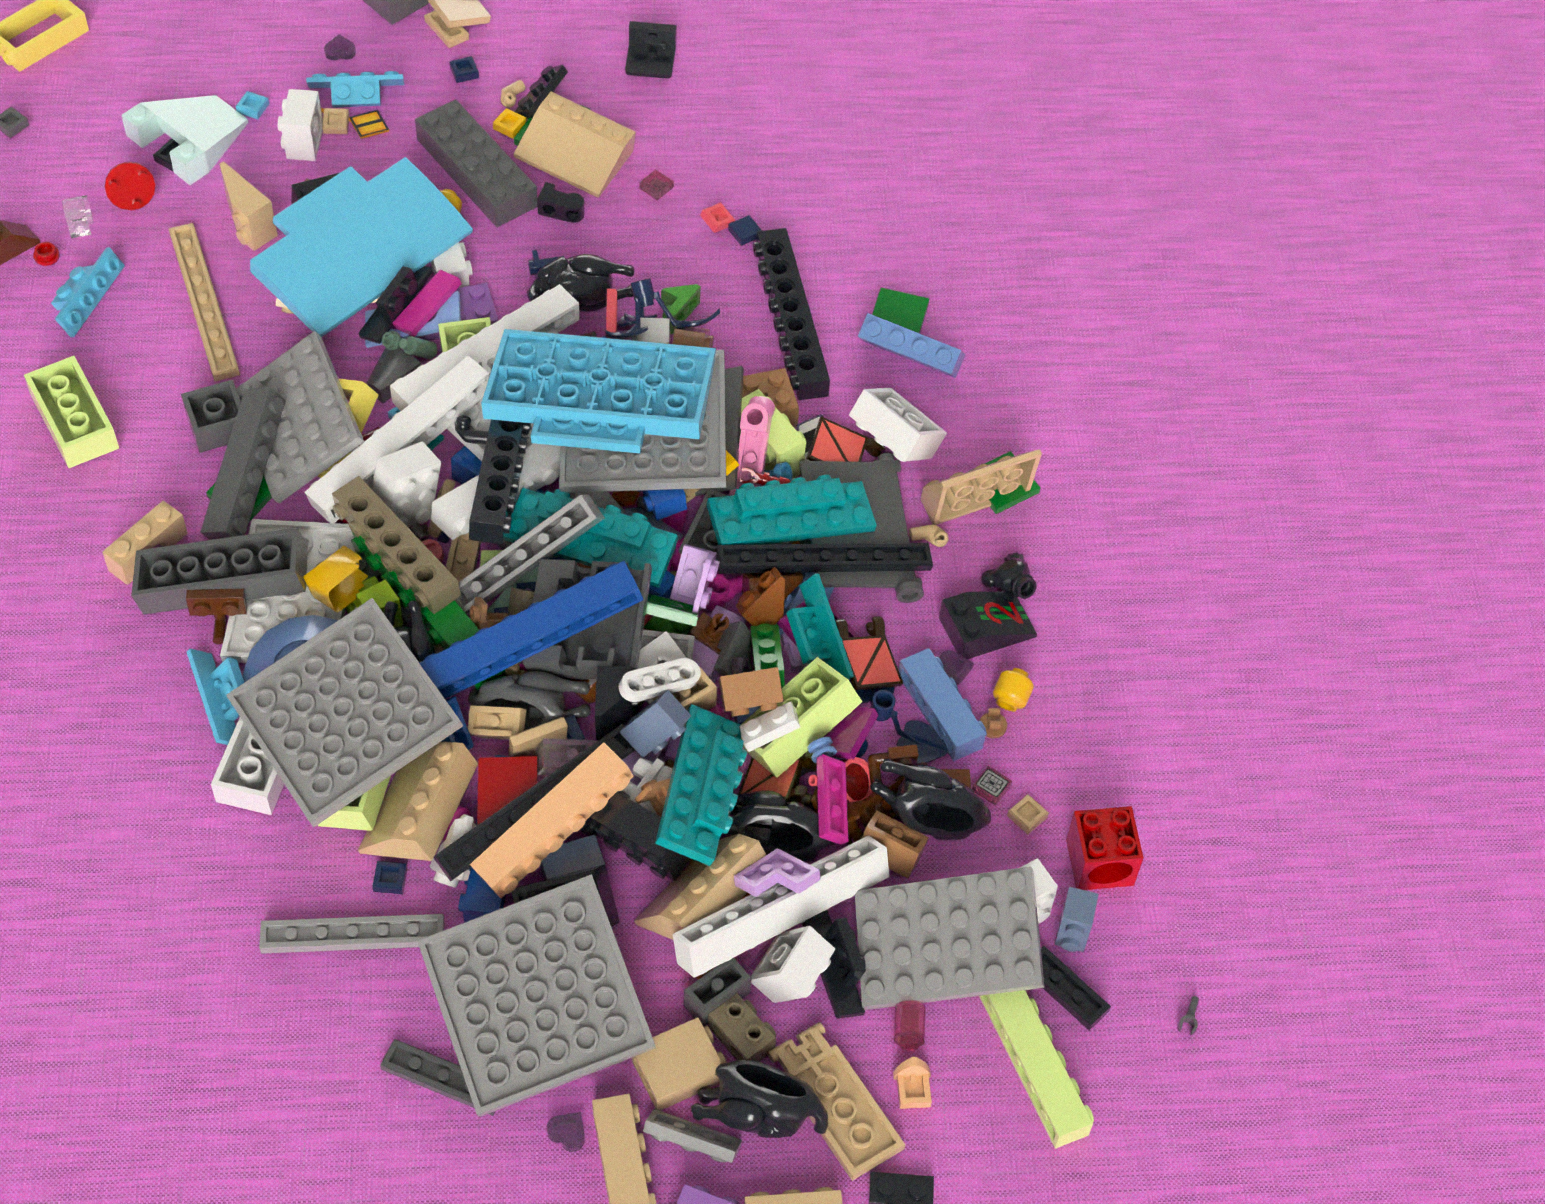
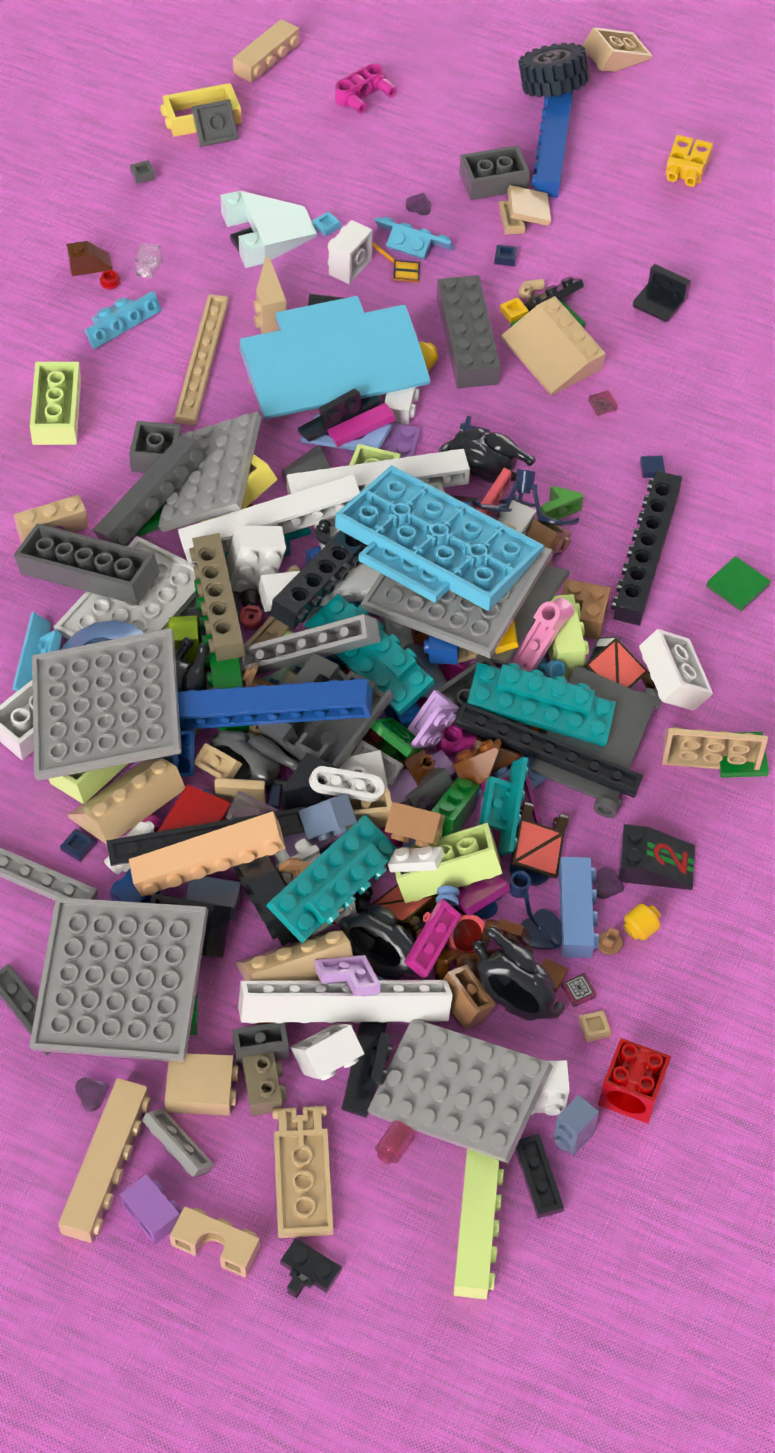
camera: 30 degrees right, 0 degrees up
(63, 39) = (214, 123): none -> dark grey tile
(129, 186) = (196, 251): red piece -> none
(217, 603) = (70, 585): reddish brown plate -> none
(335, 121) = (381, 259): tan tile -> none
(336, 579) = (174, 597): yellow piece -> none
(411, 345) = (330, 452): sand green plant -> none
(560, 204) = (514, 389): black leg -> none
(717, 217) = (634, 447): coral tile -> none
(761, 1100) = (241, 1140): black piece -> none
(762, 478) = (532, 665): red piece -> none
(911, 345) = (729, 612): medium blue brick -> none
(913, 1083) = (371, 1189): light nougat tile -> none
(931, 533) = (654, 770): tan arm -> none
(1011, 576) = (698, 832): black animal -> none
(1190, 1015) = (627, 1248): dark grey hand -> none

